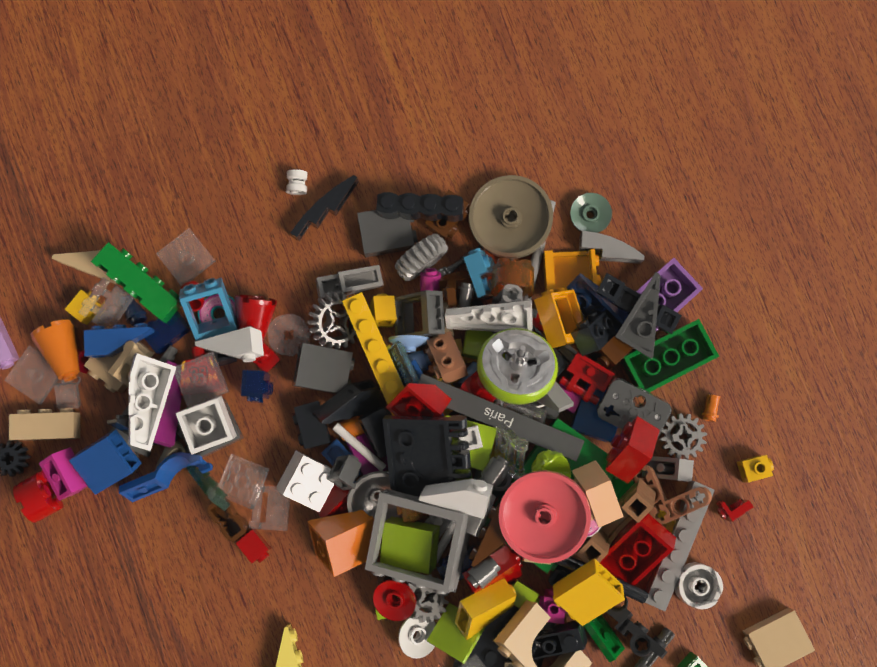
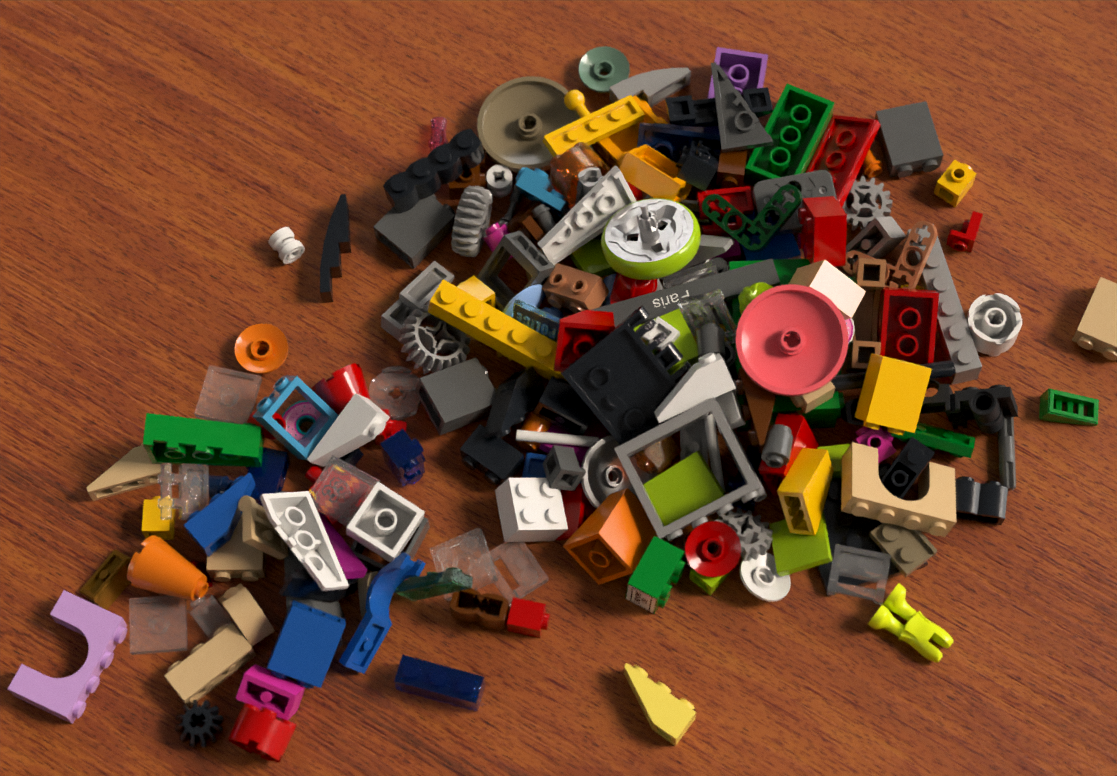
camera: 35 degrees left, 15 degrees down
(25, 322) = (108, 580): none -> pearl gold slope
(86, 410) = (246, 614): none -> tan brick
(169, 546) = (439, 683): none -> clear blue brick
(228, 231) = (257, 338): none -> orange dish
(348, 586) = (653, 576): none -> green brick
(447, 181) = (438, 132): none -> clear pink pin
(463, 244) = (499, 187): none -> white wheel
(548, 252) = (592, 126): none -> yellow plate
(596, 409) = (759, 224): none -> dark green beam
(695, 392) = (844, 151): none -> red tile
(749, 415) = (908, 139): none -> dark grey brick

